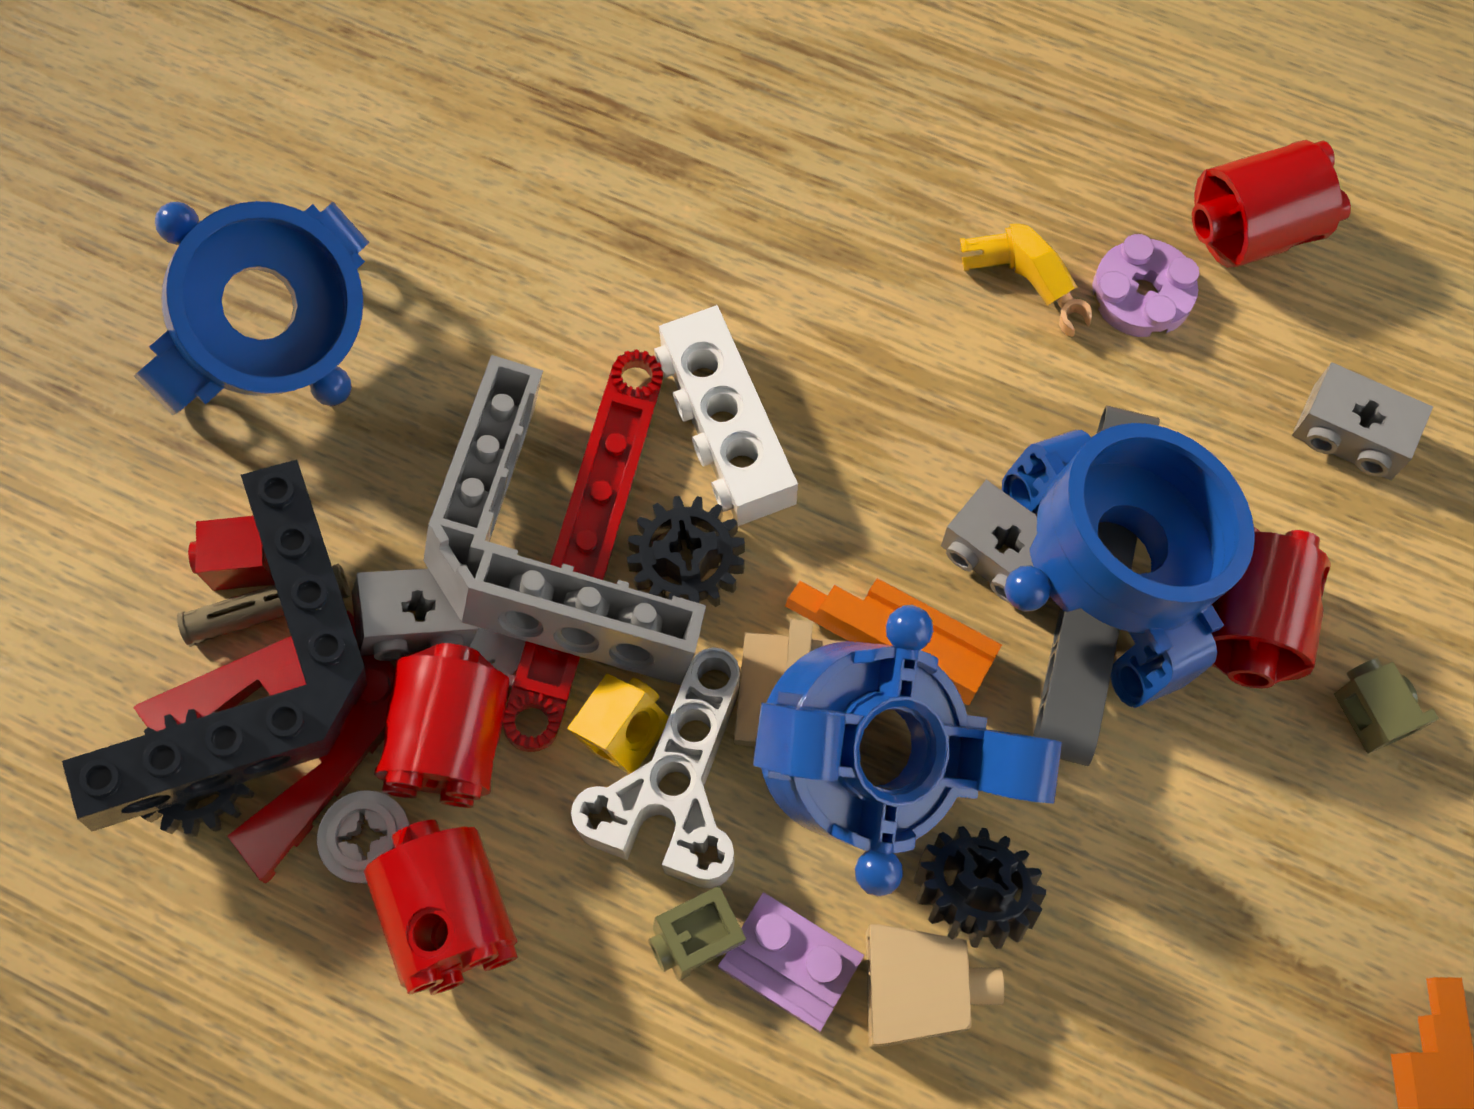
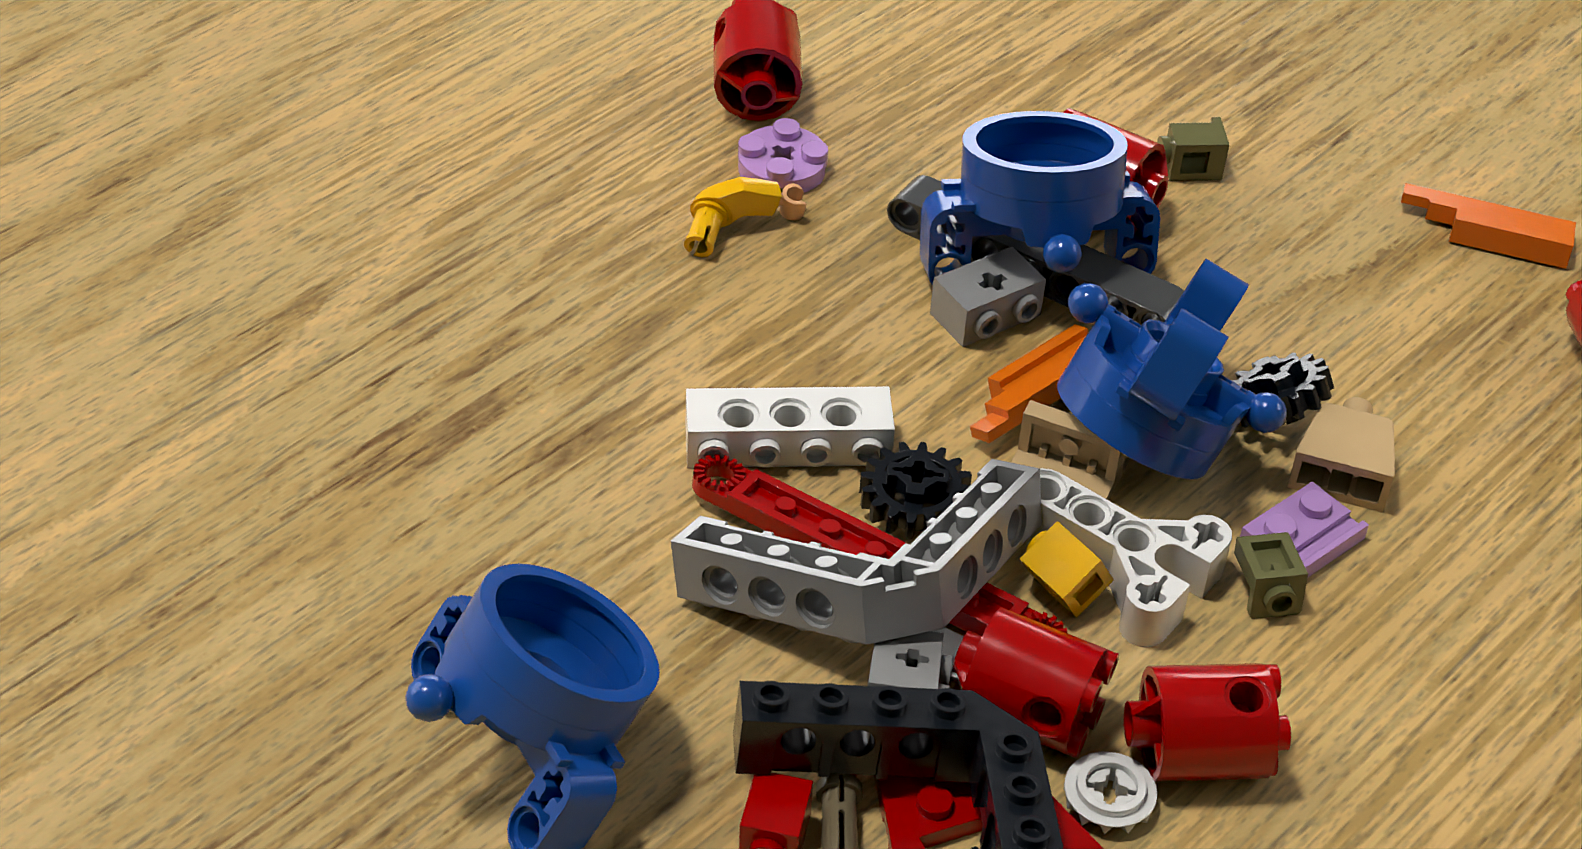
camera: 75 degrees left, 25 degrees down
(1362, 422) = (961, 85): light grey brick -> none

